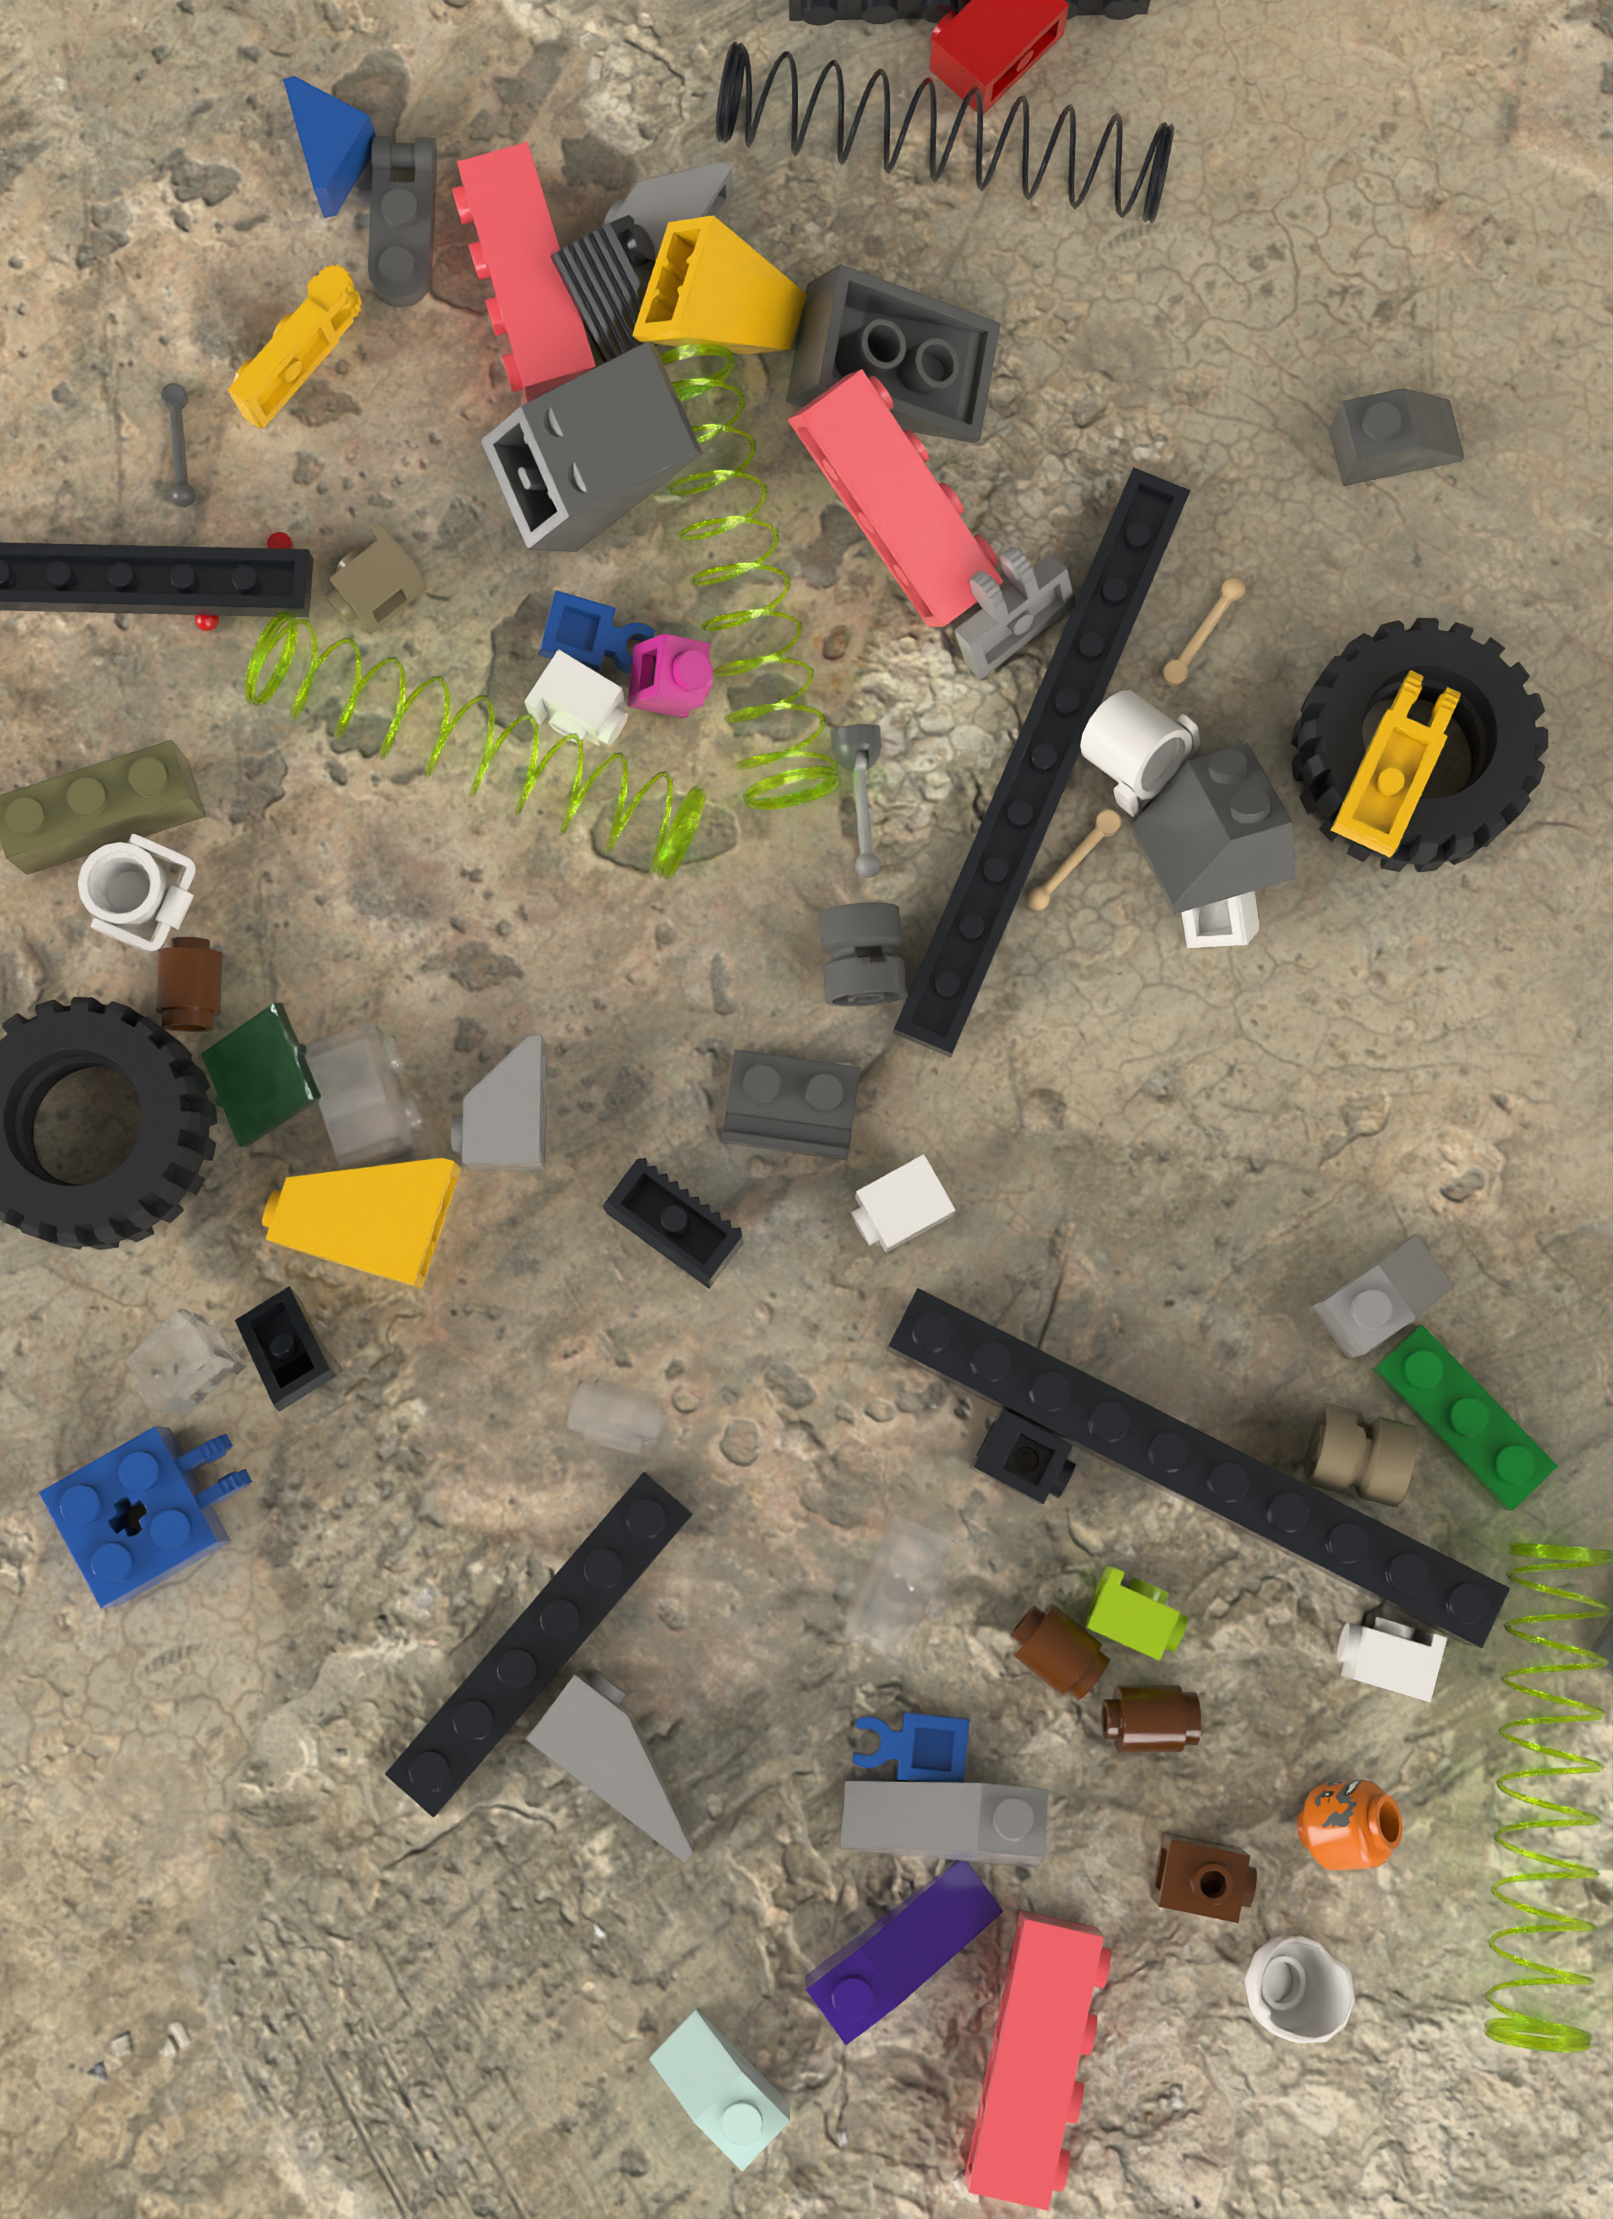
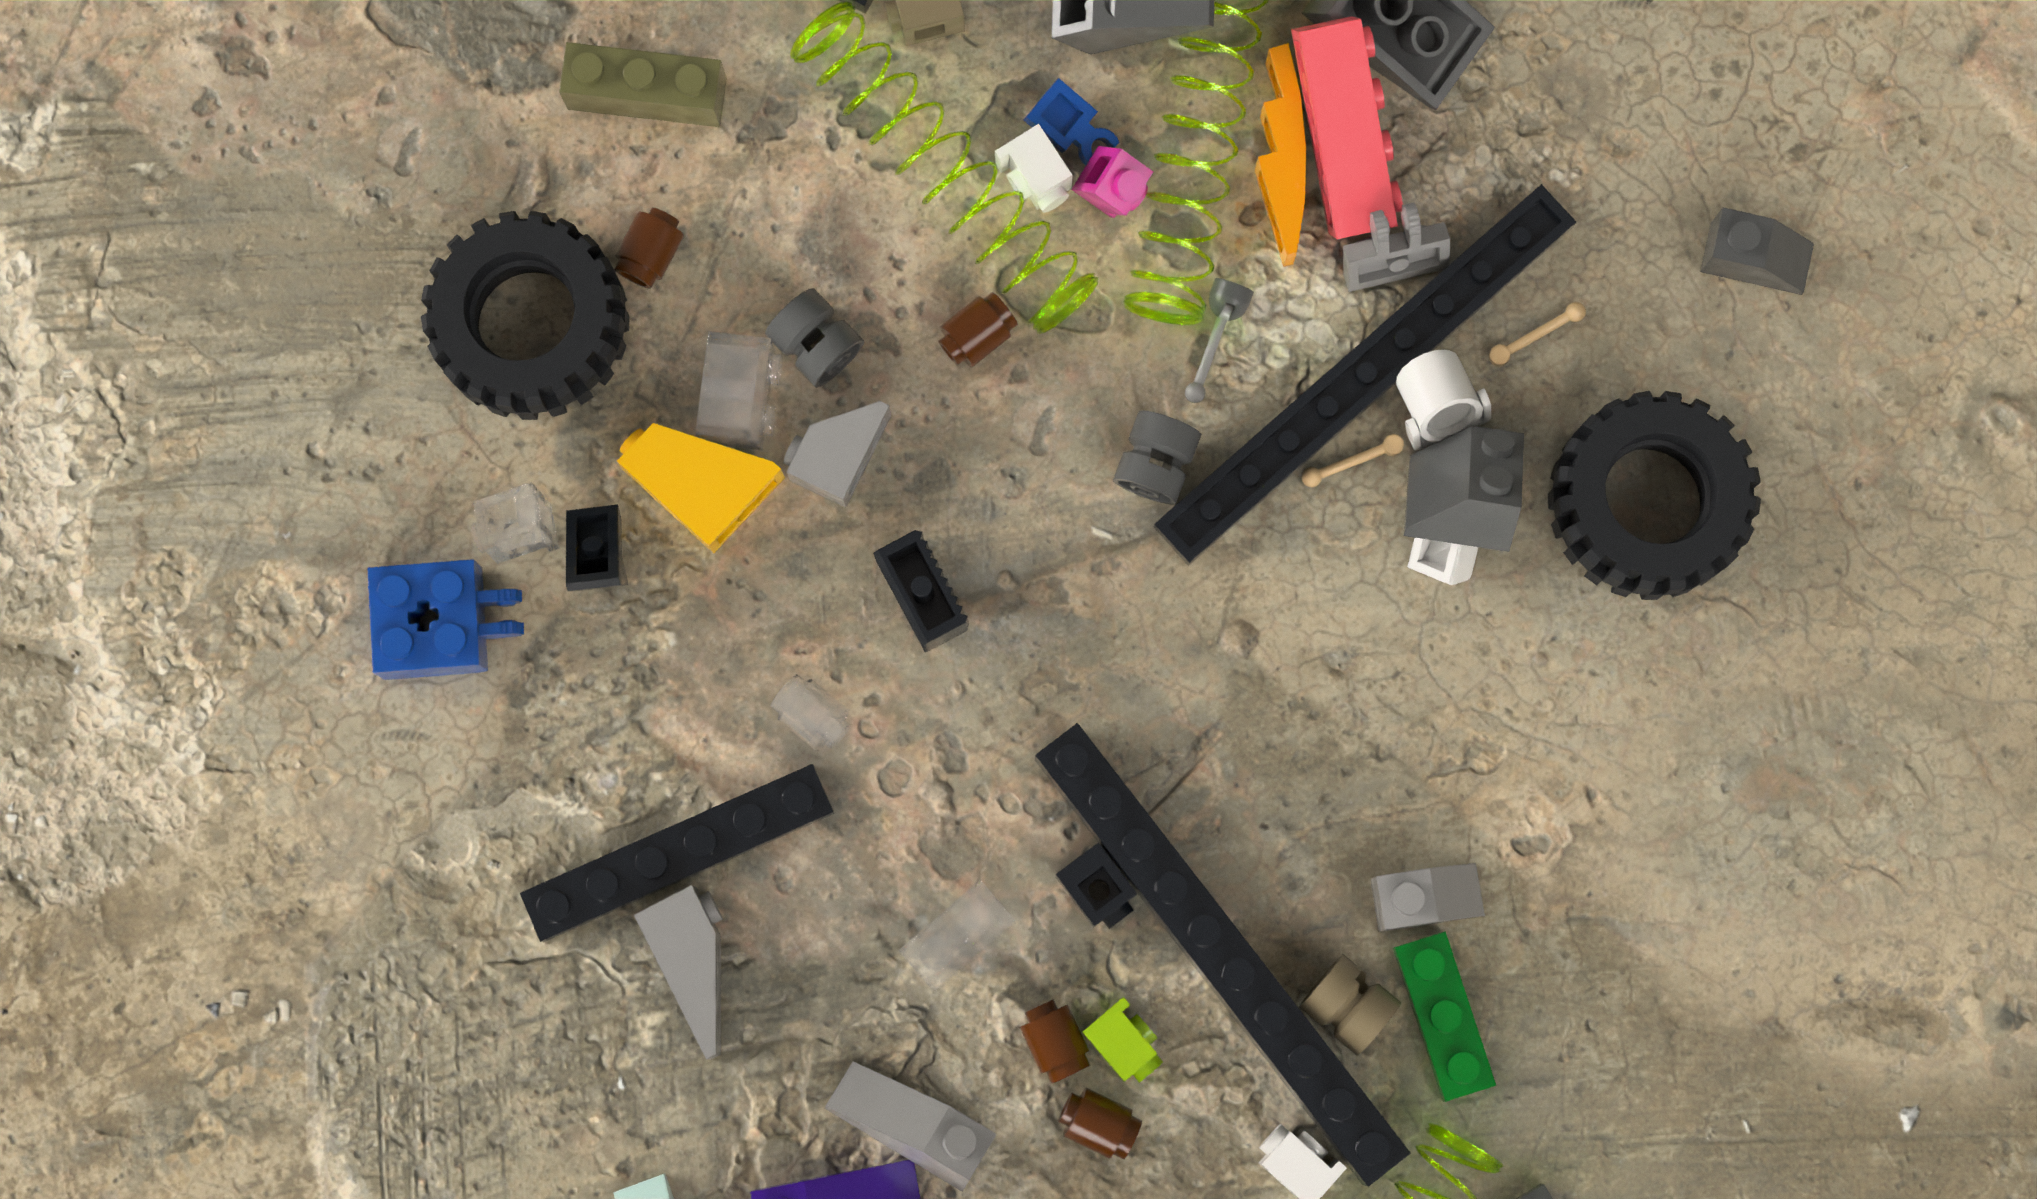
camera: 30 degrees right, 0 degrees up
(134, 893) = (641, 162): white piece -> none
(261, 1075) = (670, 339): clear green piece -> none
(401, 990) = (802, 324): none -> dark grey wheel
(597, 907) = (977, 330): none -> reddish brown brick
(791, 1105) = (1051, 545): dark grey plate -> none
(848, 578) = (1283, 171): none -> light orange slope
(901, 1205) = (1097, 658): white brick -> none
(926, 1746) = (922, 1064): blue plate -> none
(1394, 770) = (1617, 504): yellow hinge -> none

